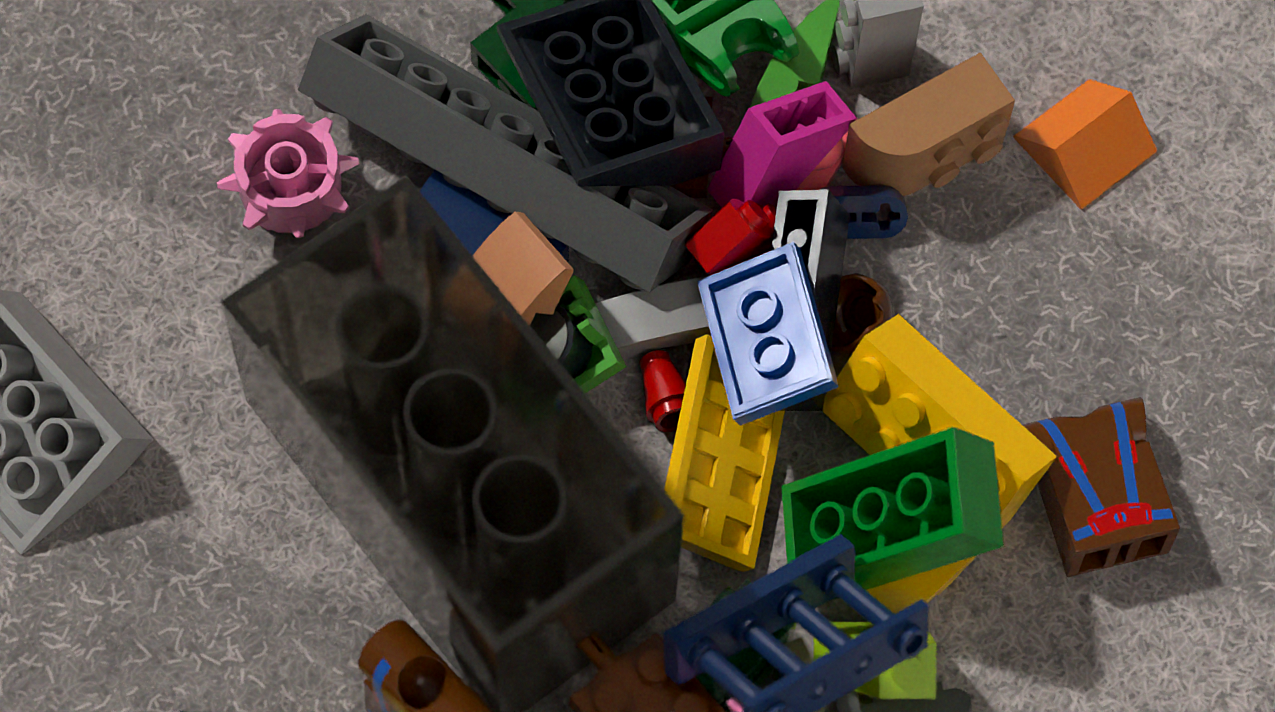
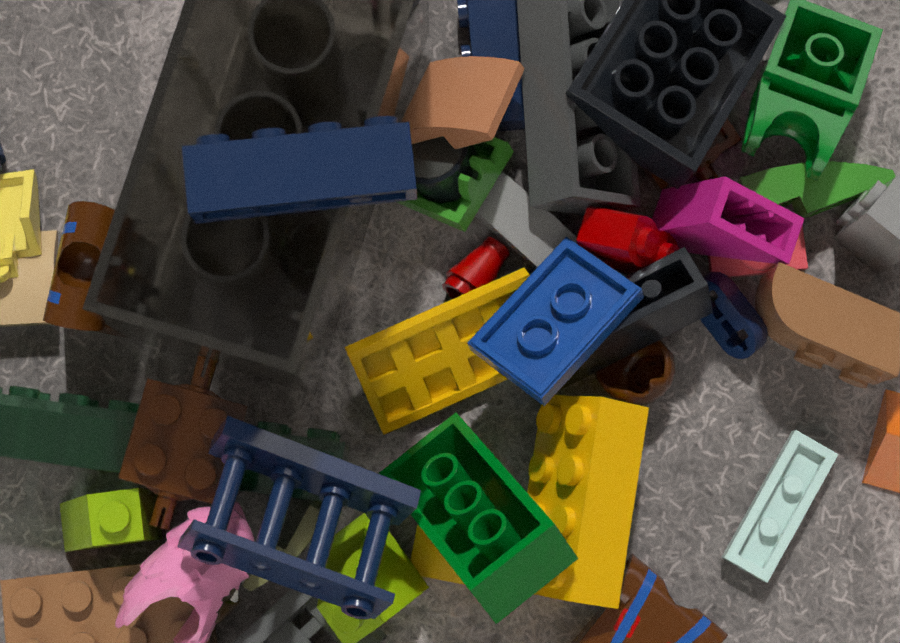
camera: 55 degrees right, 15 degrees up
(517, 386) = (299, 171): none -> dark blue brick
(1055, 285) = (779, 506): none -> light aqua plate

